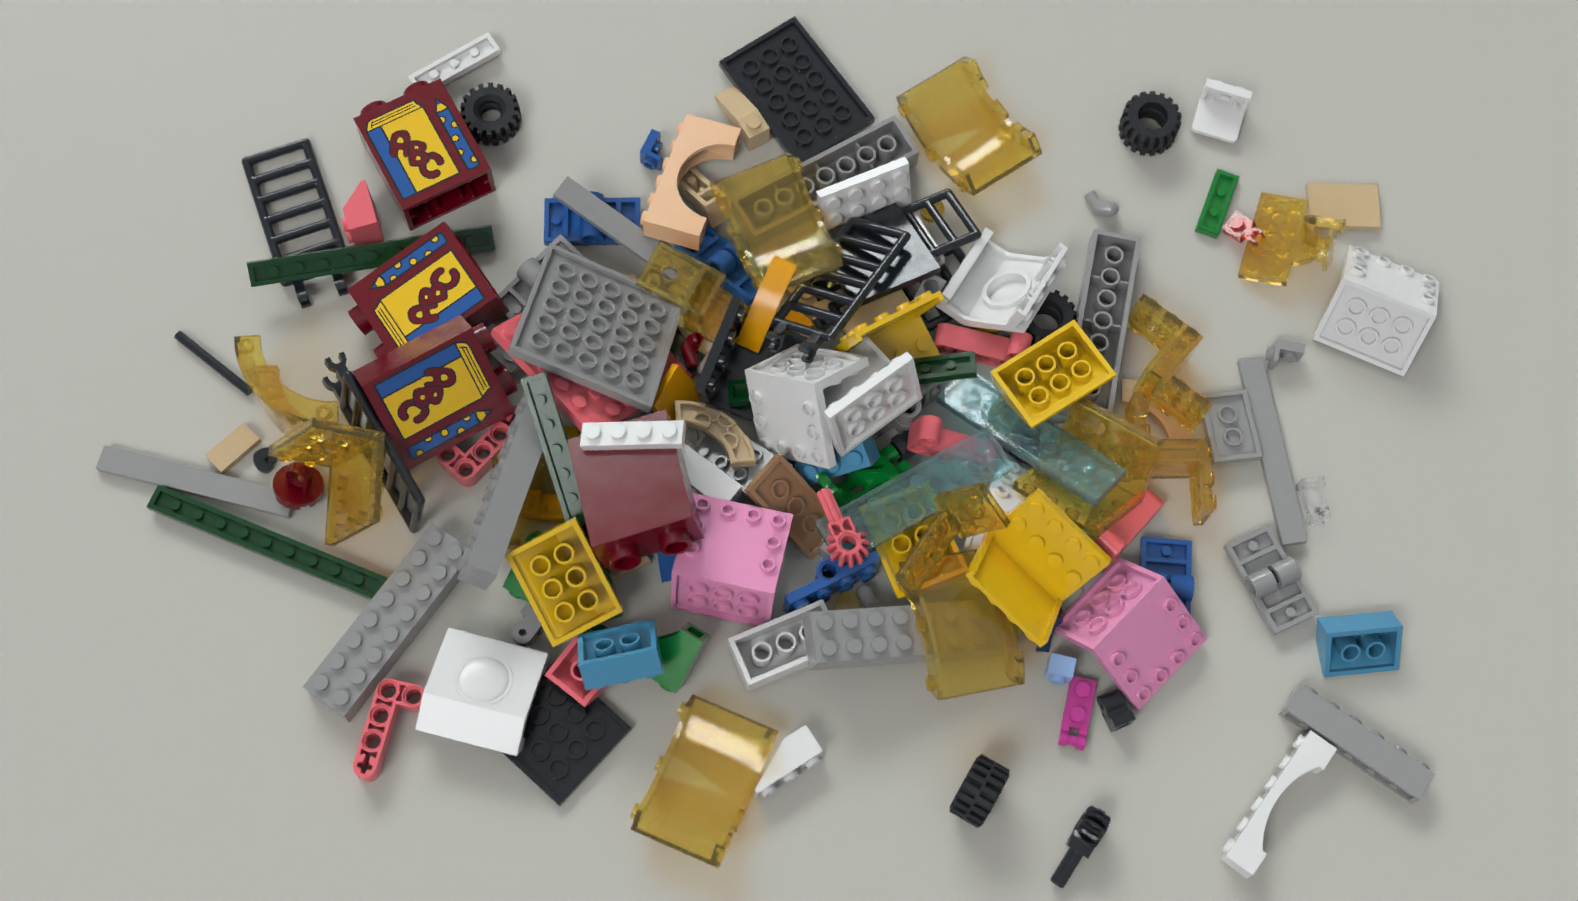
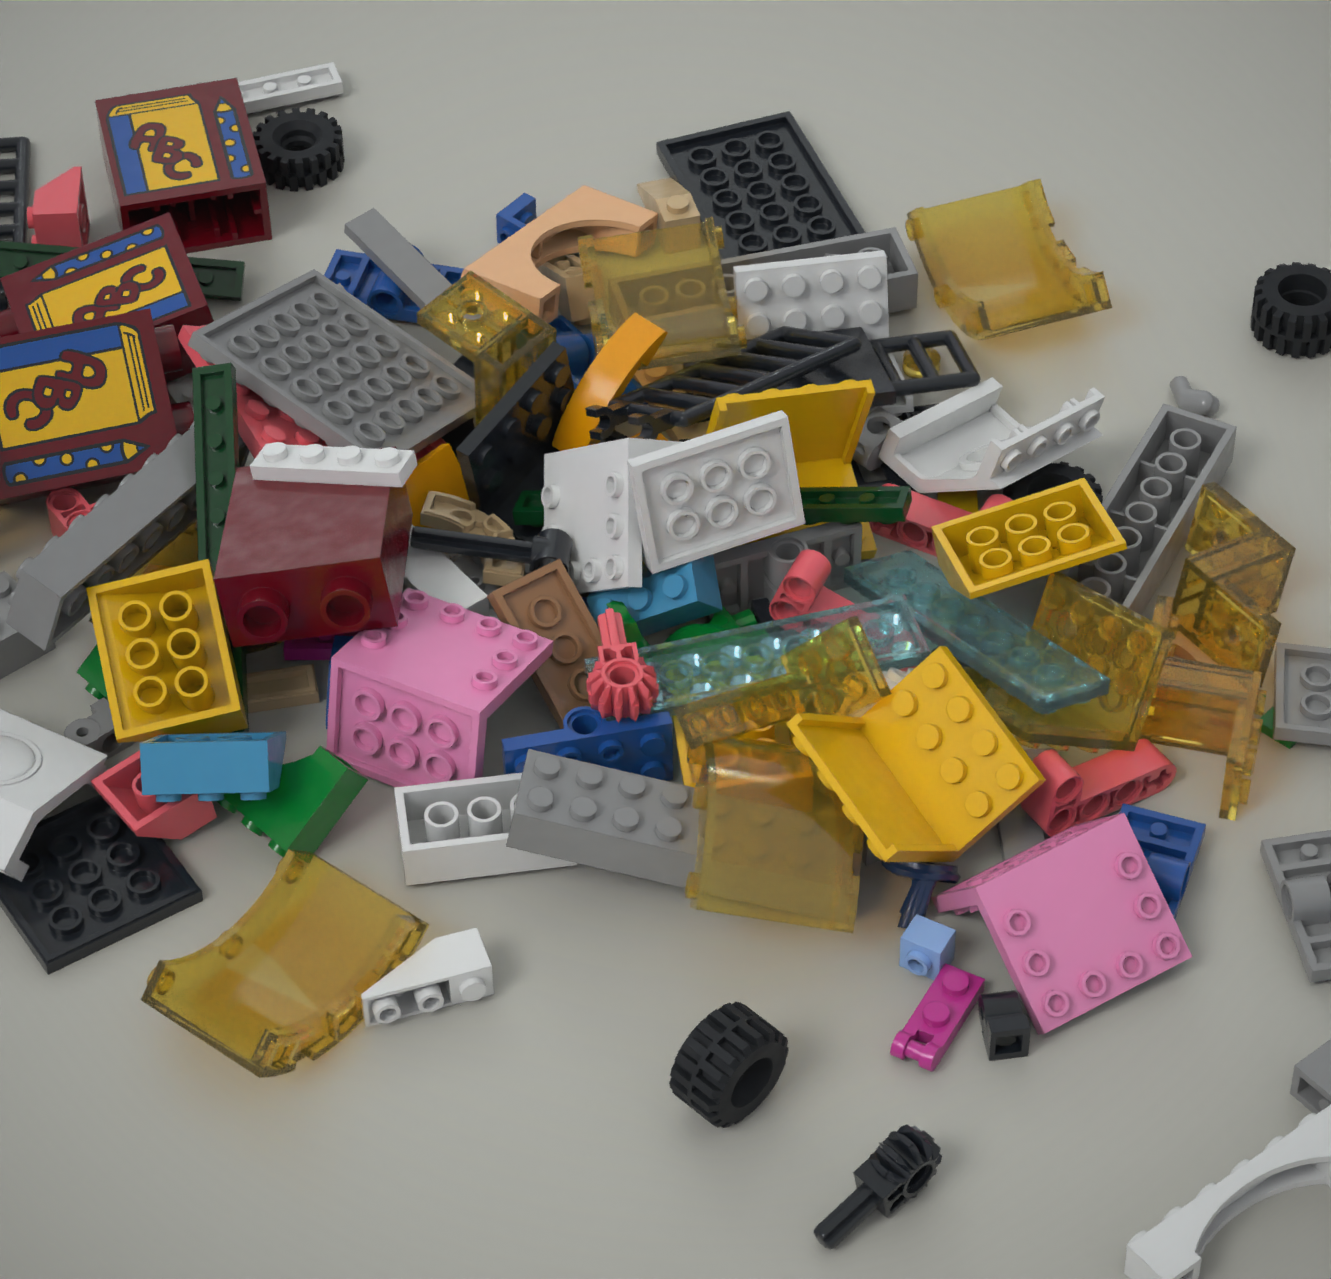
camera: 20 degrees right, 25 degrees down
(765, 444) = (546, 546): none -> black axle

